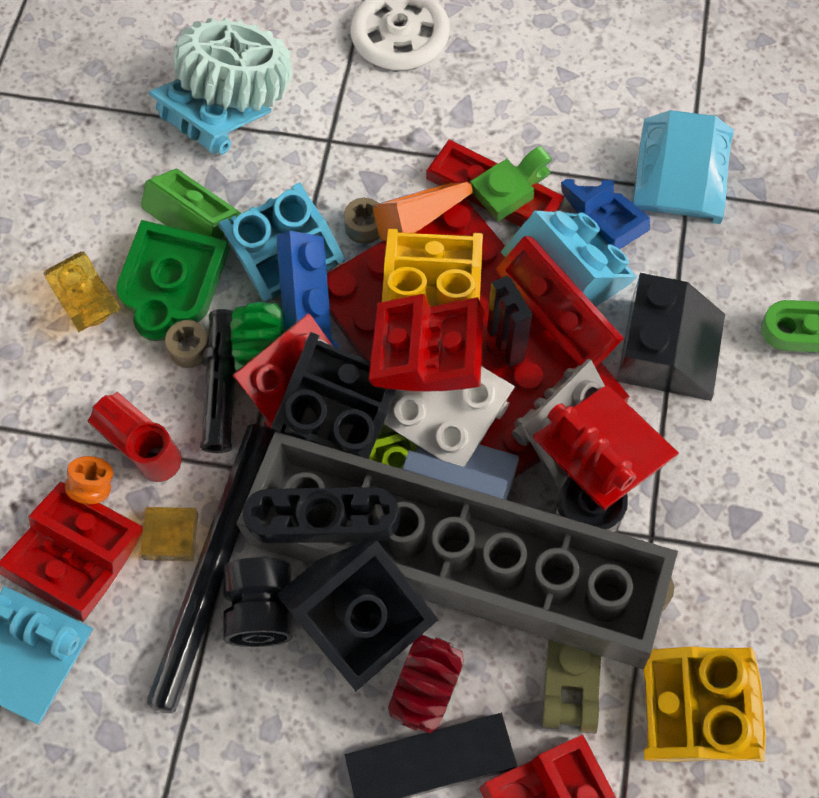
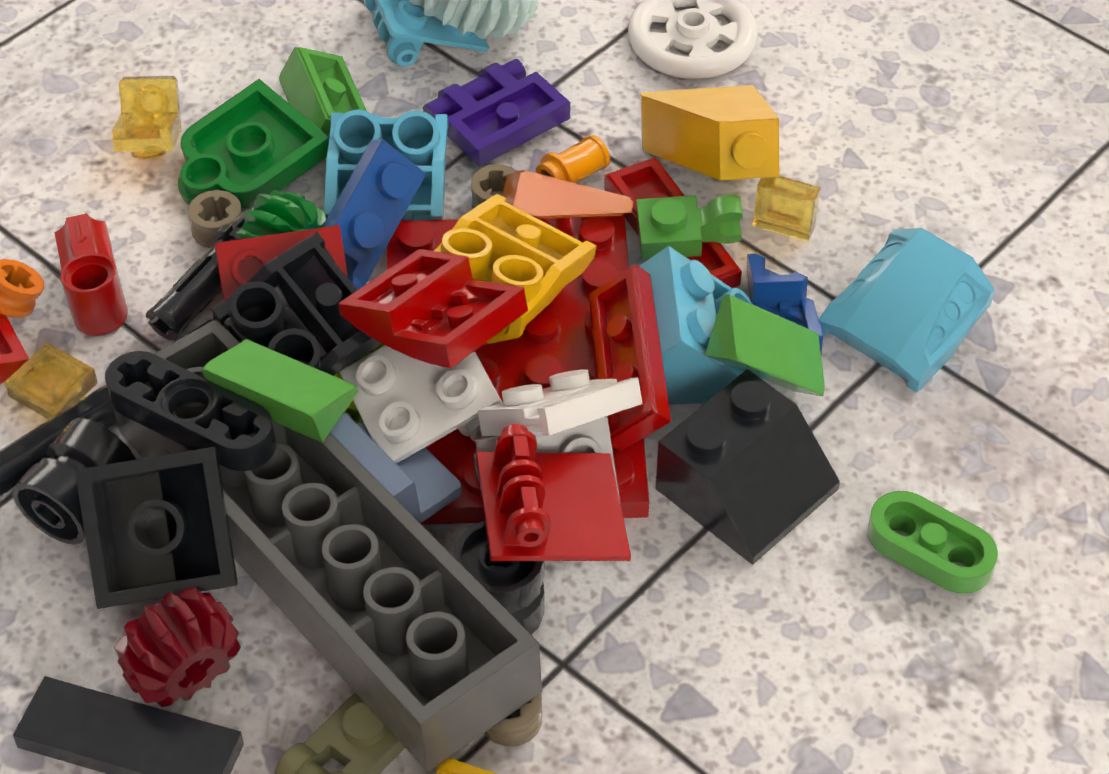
camera: 30 degrees right, 15 degrees down
(329, 162) = (499, 110): none -> dark purple plate
(373, 462) = (288, 389): none -> bright green slope
(399, 178) = (576, 161): none -> light orange pin
(487, 102) = (713, 131): none -> yellow slope
(510, 327) = (546, 326): black tile -> none
(555, 370) = (564, 405): none -> white plate
(562, 132) = (786, 207): none -> clear yellow tile
(635, 249) = (767, 346): none -> bright green slope

